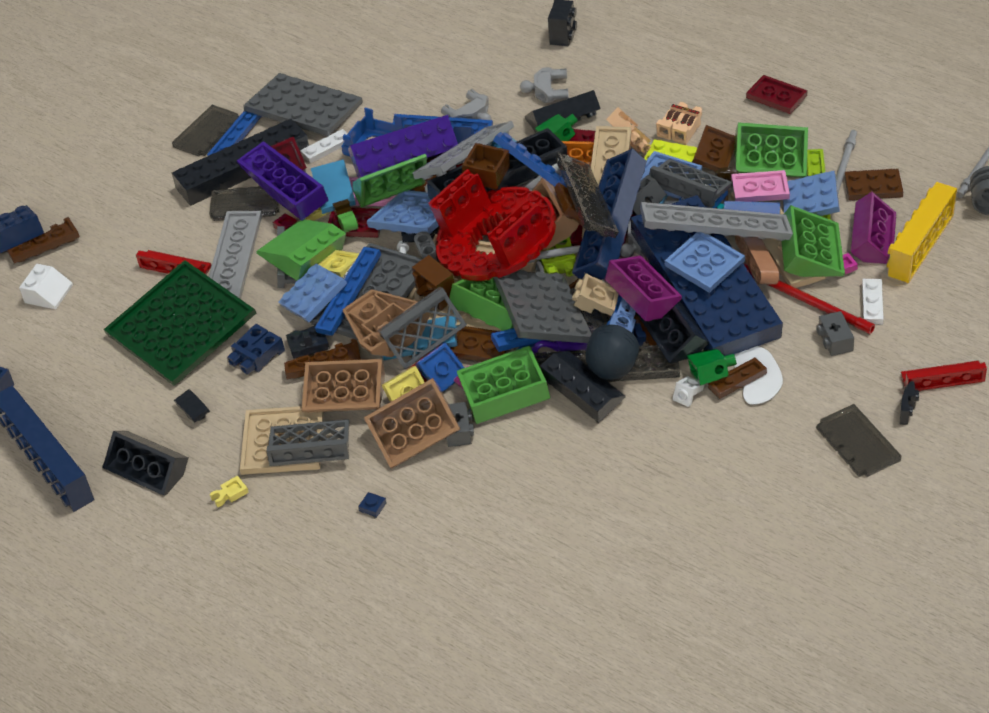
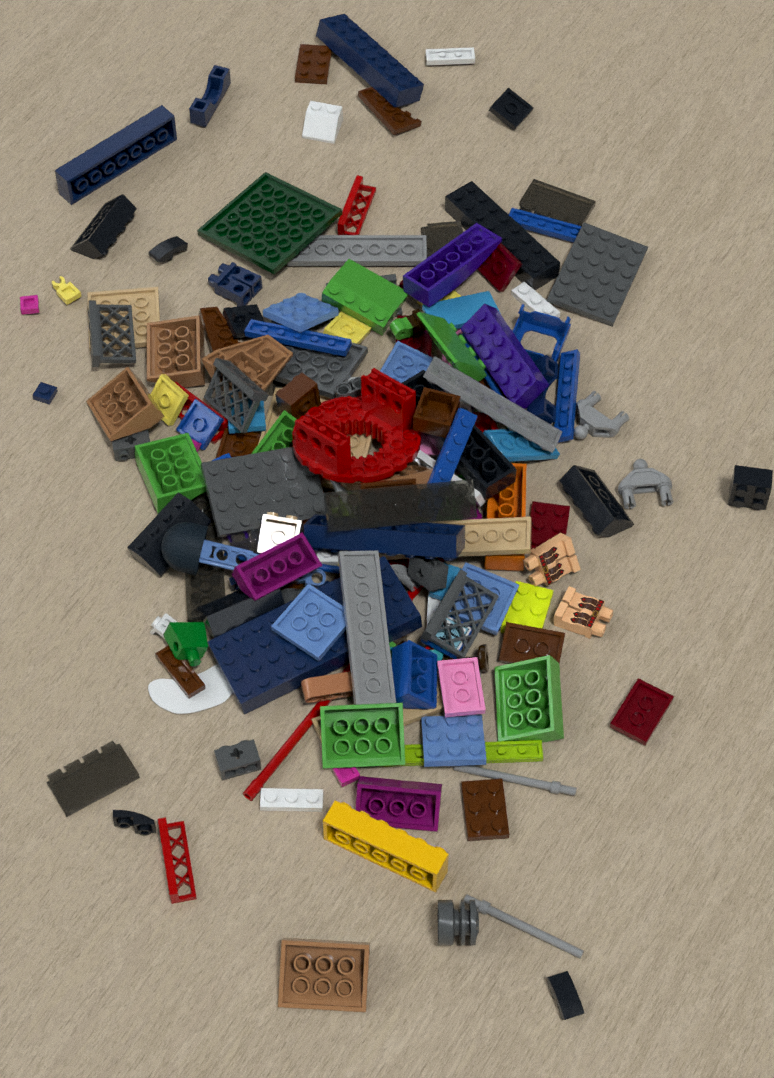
camera: 80 degrees right, 10 degrees up
(76, 153) = (511, 109): none -> black hinge
(243, 523) = (29, 304): none -> dark pink plate
(560, 126) = (550, 493): green torso -> none

